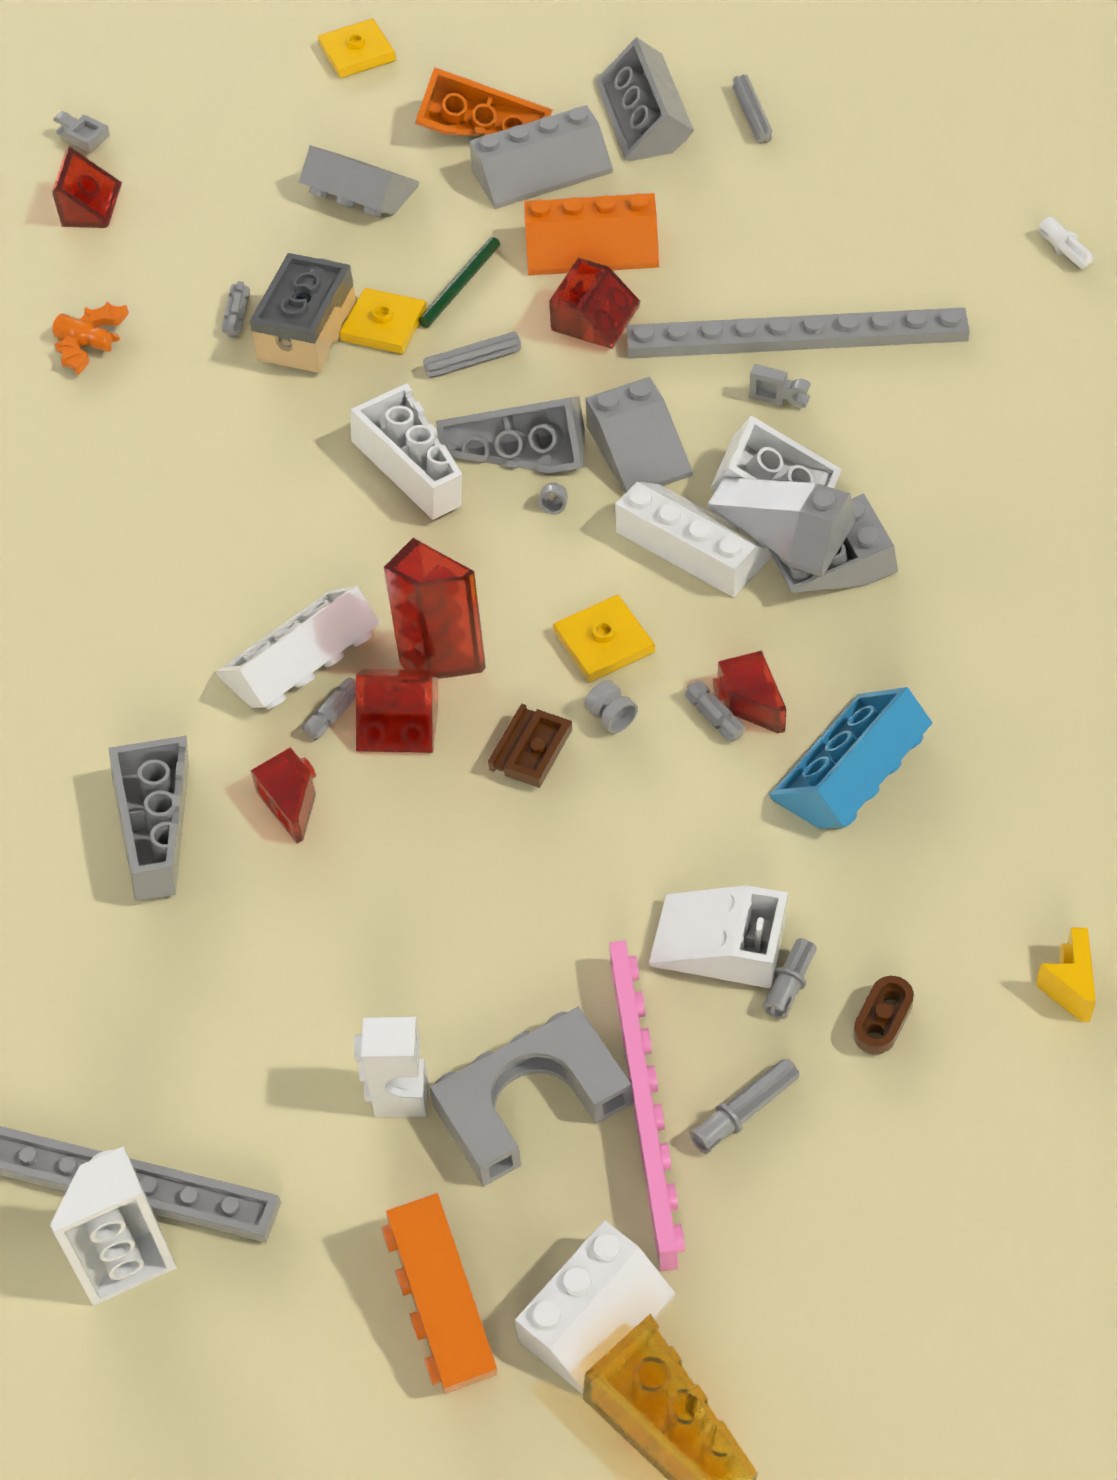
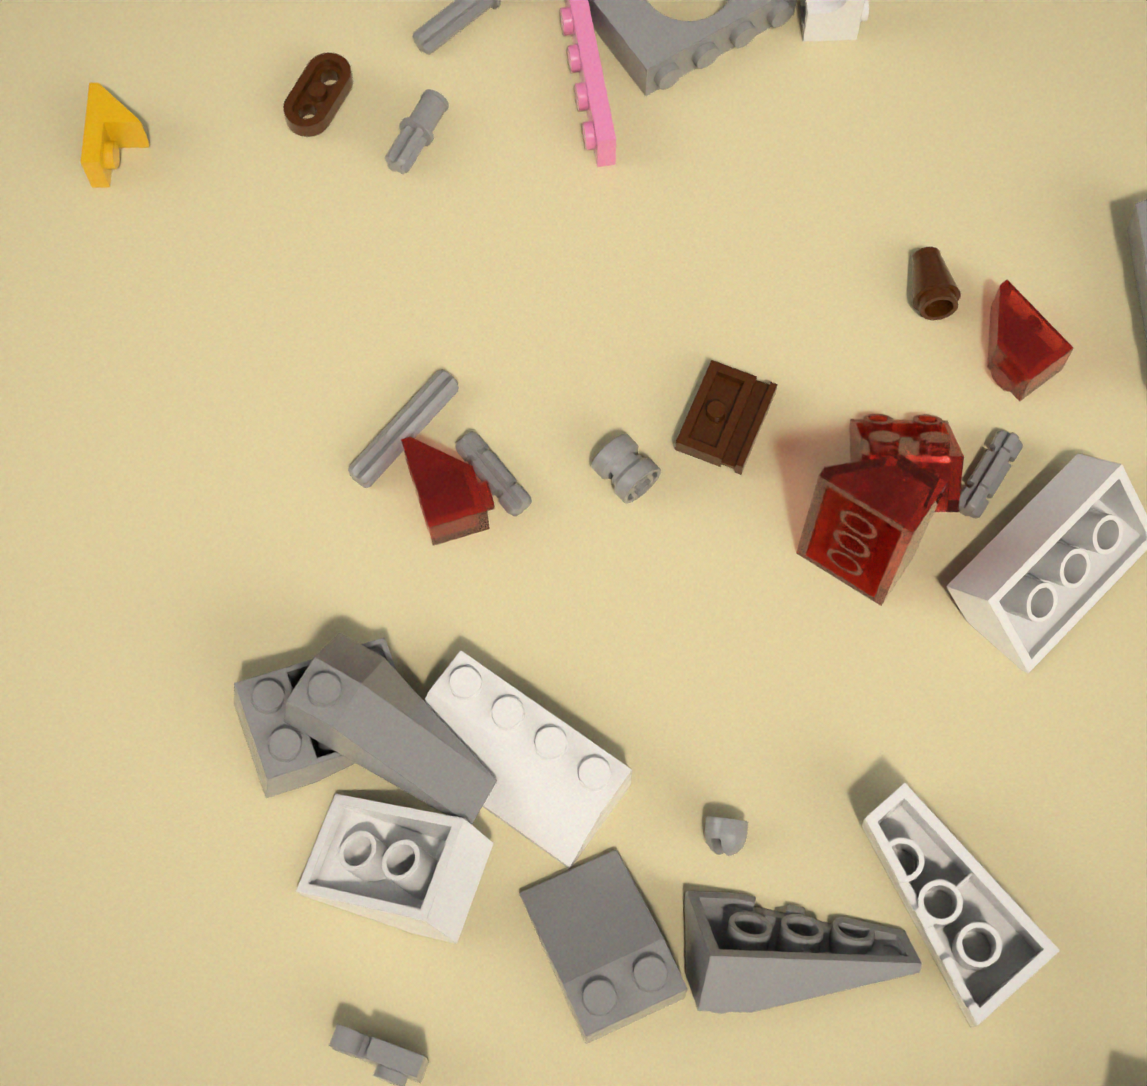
camera: 175 degrees right, 15 degrees up
(349, 842) = (933, 285): none -> reddish brown cone
(604, 638) = (640, 590): yellow plate -> none
(722, 933) = (489, 168): white slope -> none
(786, 744) = (406, 423): none -> light grey axle
(853, 758) = (325, 399): dark azure slope -> none

